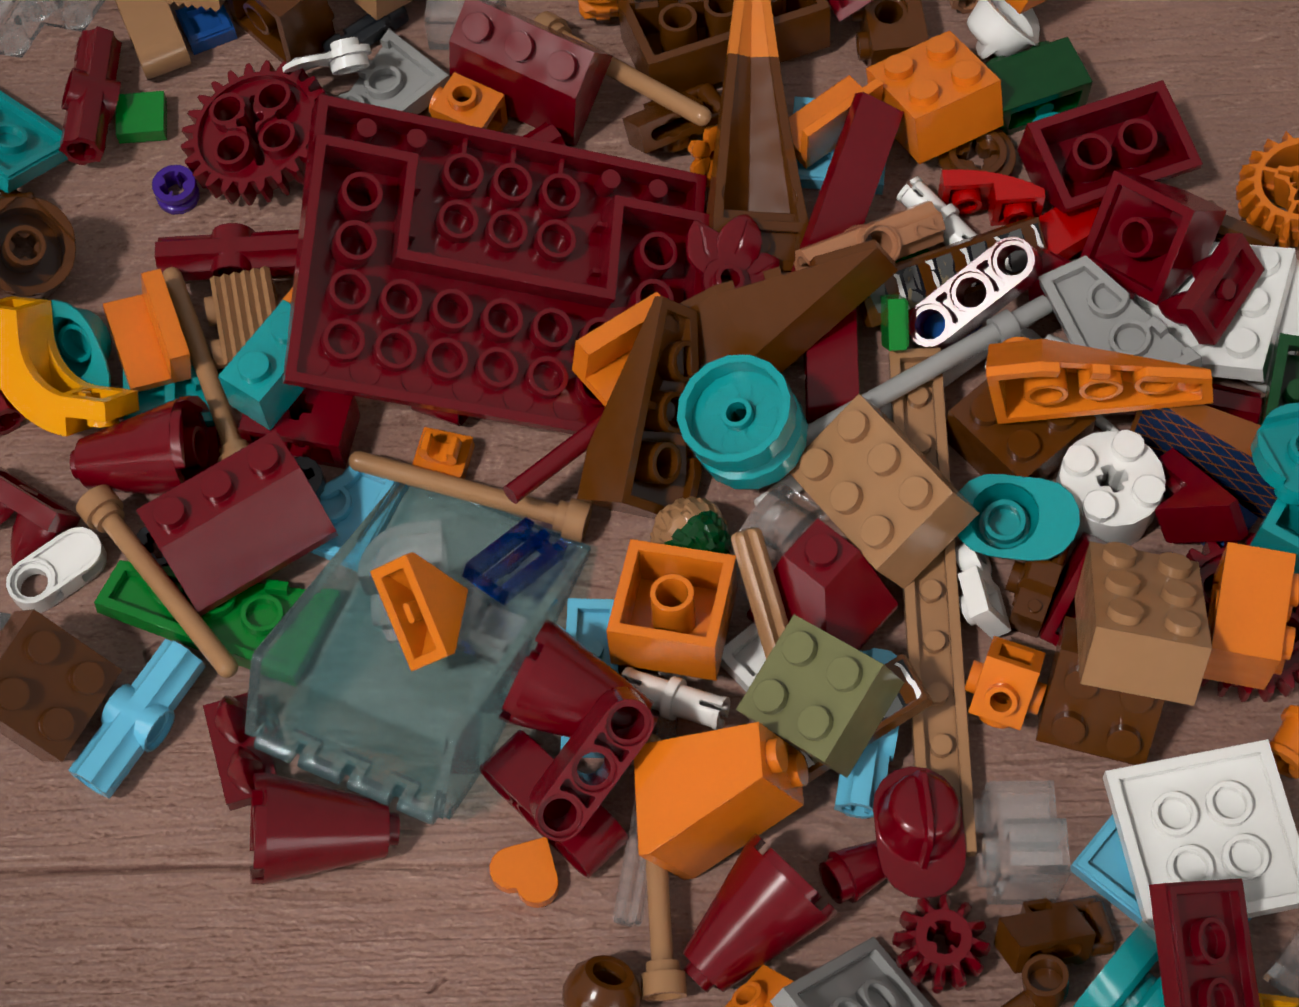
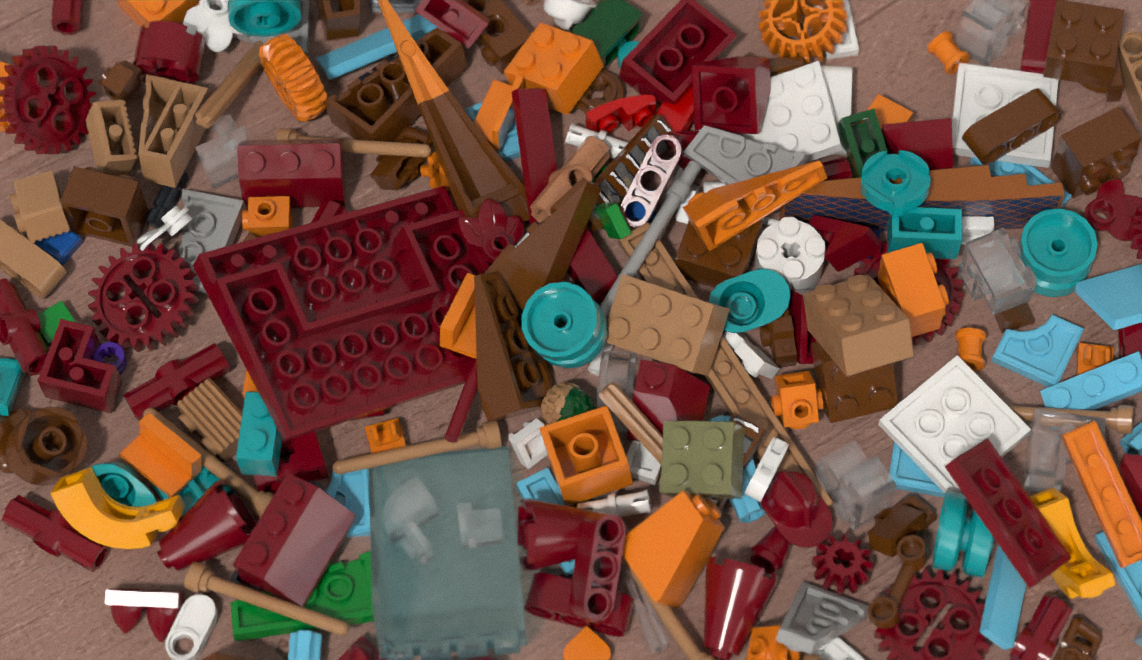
camera: 30 degrees left, 0 degrees up
(116, 175) = (73, 374): none -> dark red brick
(422, 608) = (442, 532): orange slope -> none
(533, 542) = (477, 461): clear blue tile -> none
(610, 553) = (529, 443): none -> white tile
(906, 755) = (766, 469): none -> white piece
(1218, 289) = (791, 106): dark red tile -> none

